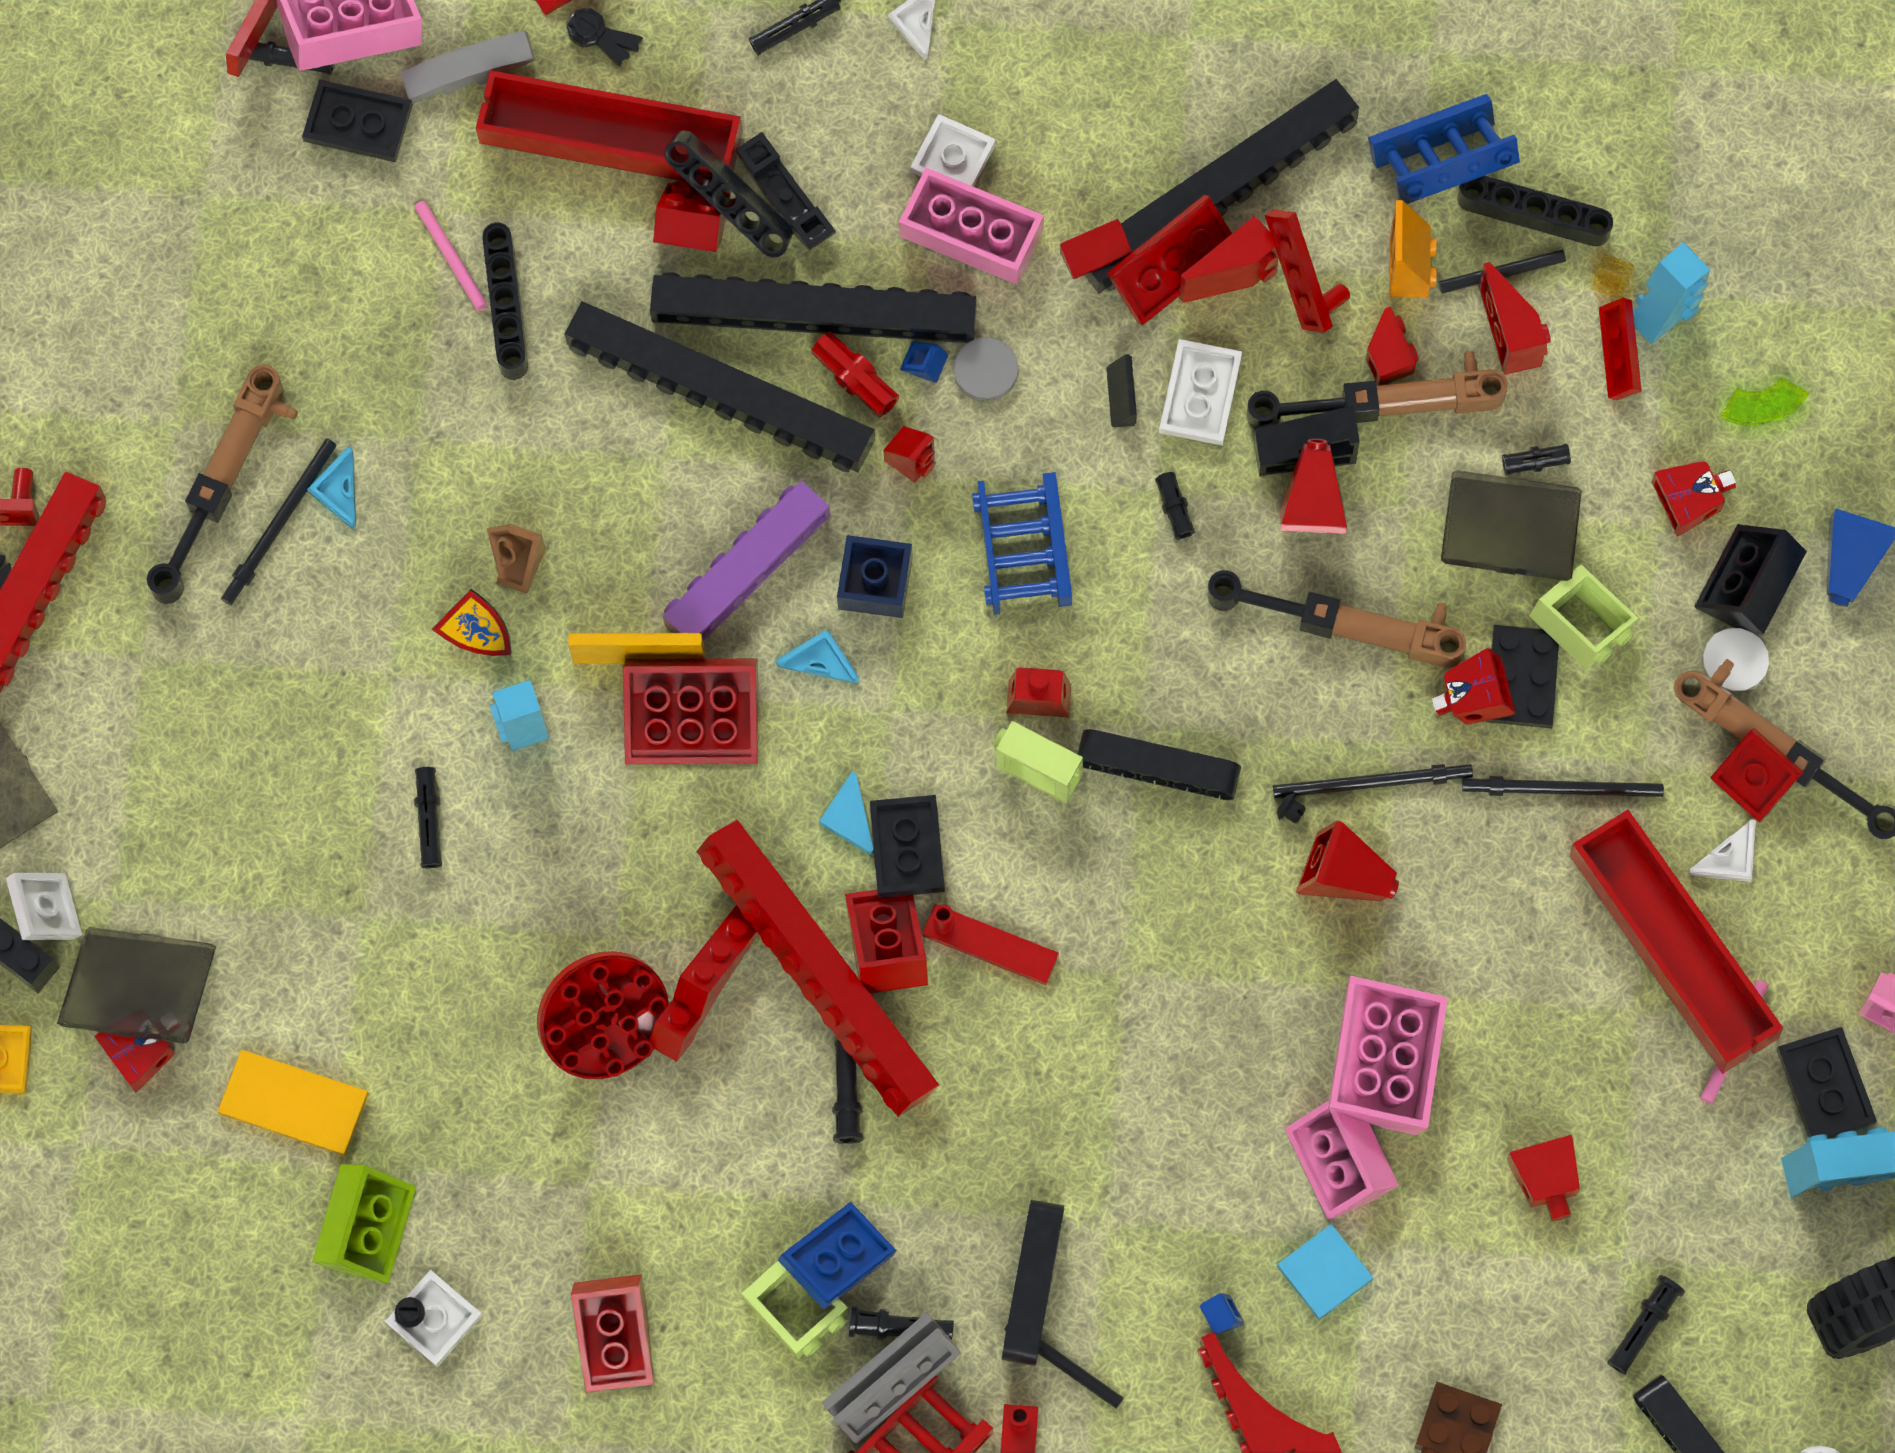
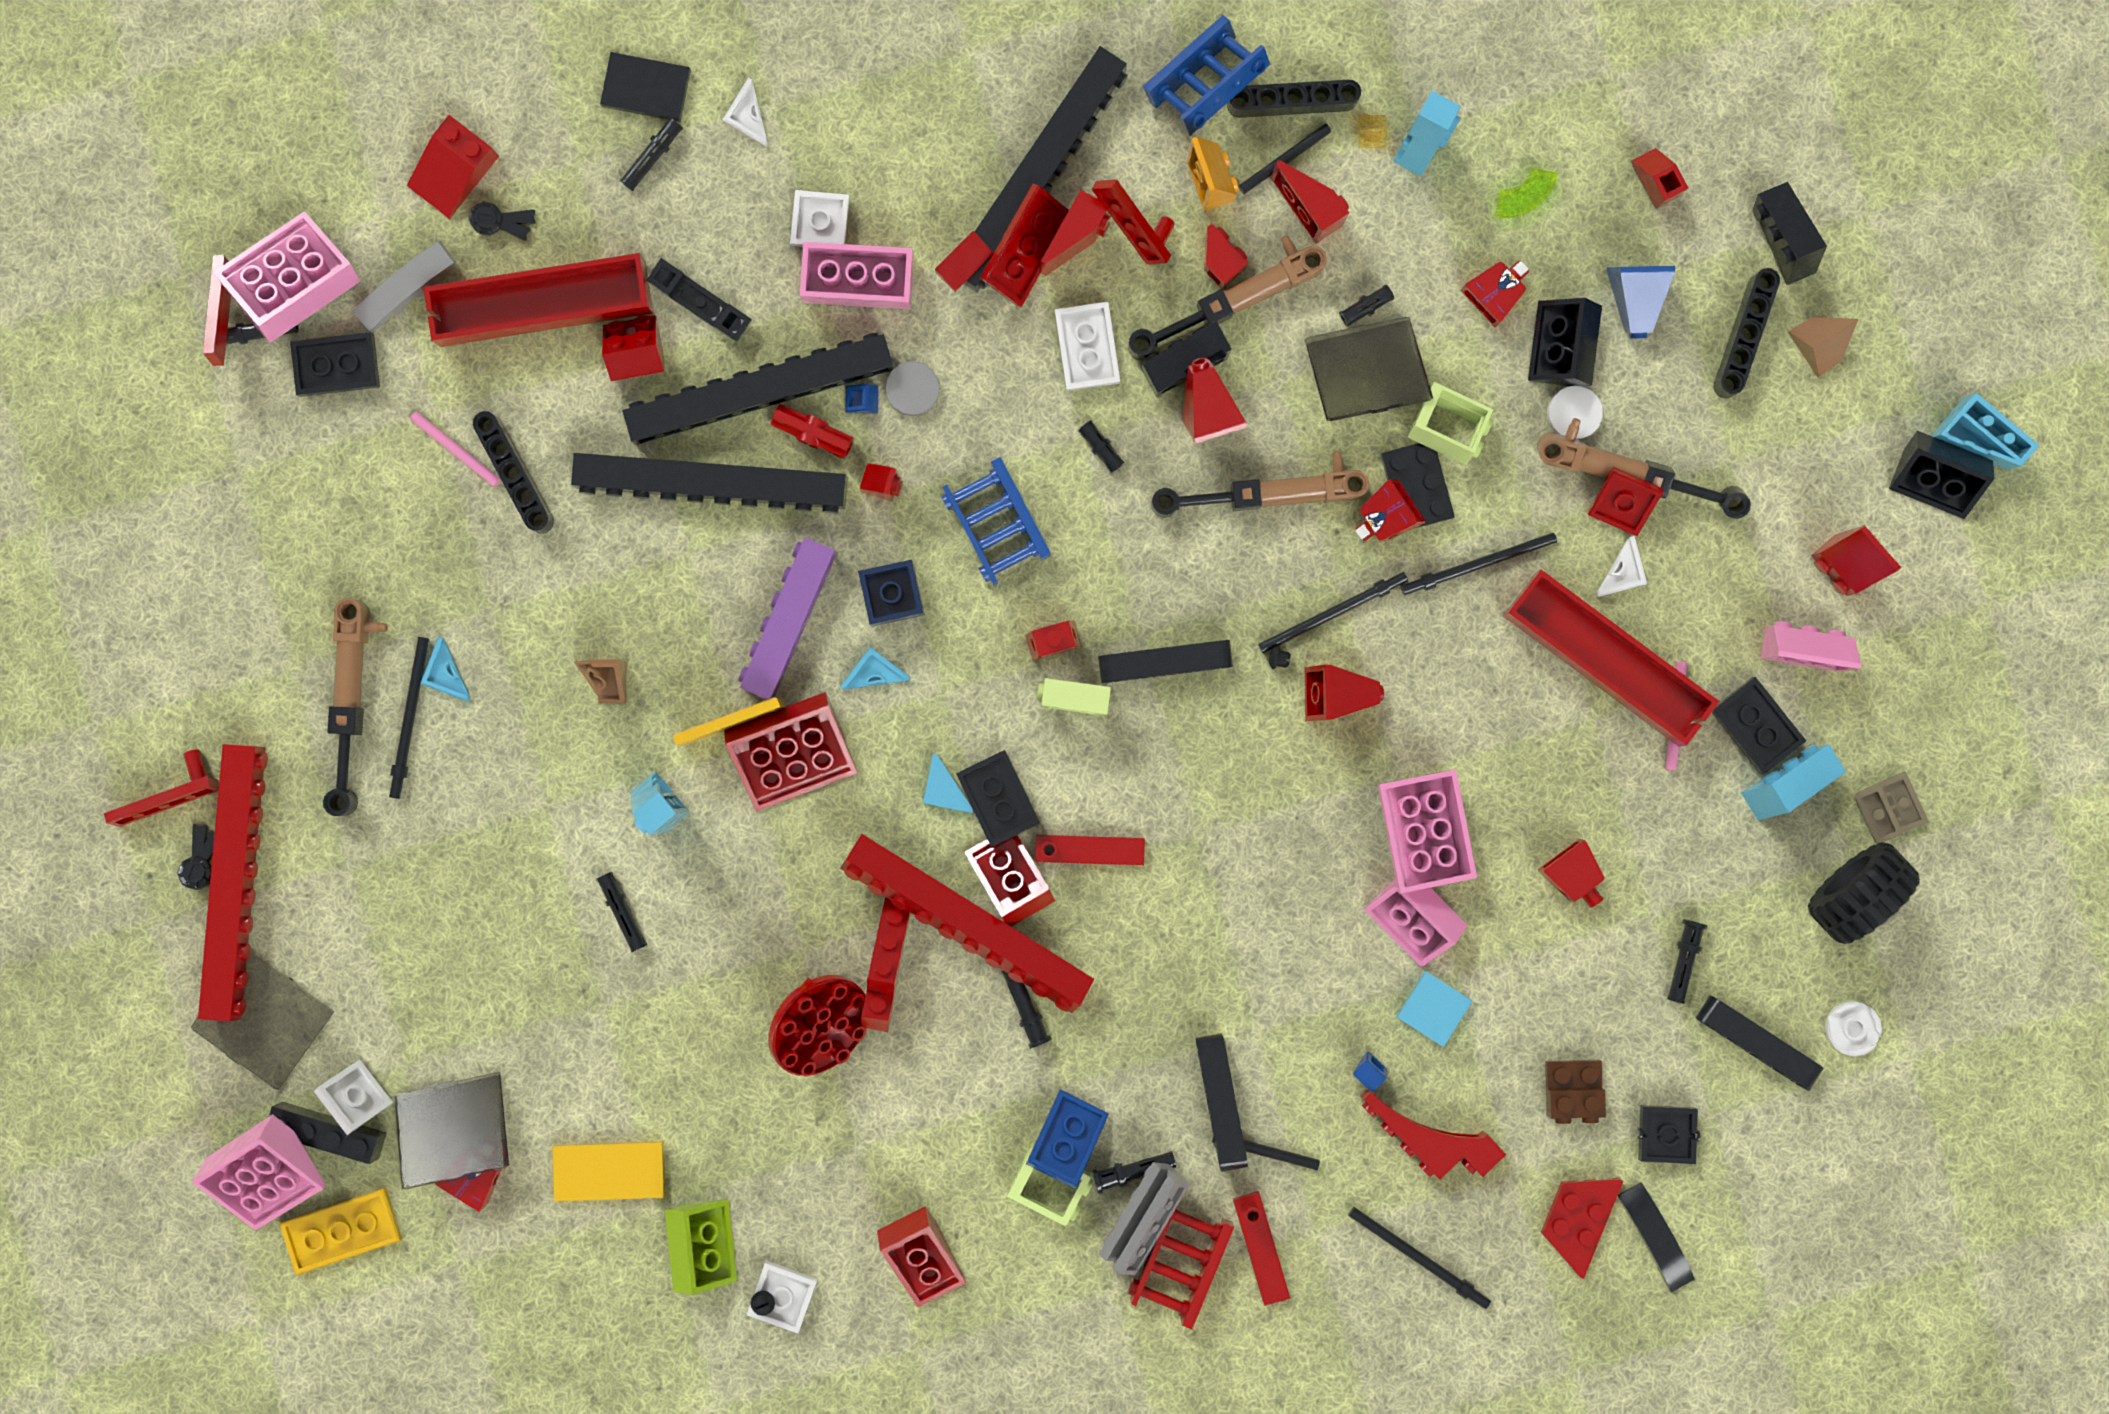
camera: 25 degrees left, 15 degrees up
(475, 627) = (596, 748): shield -> none
(732, 209) = (645, 313): black beam -> none
(1121, 392) = (1025, 369): black slope -> none
(1620, 349) = (1400, 190): red plate -> none

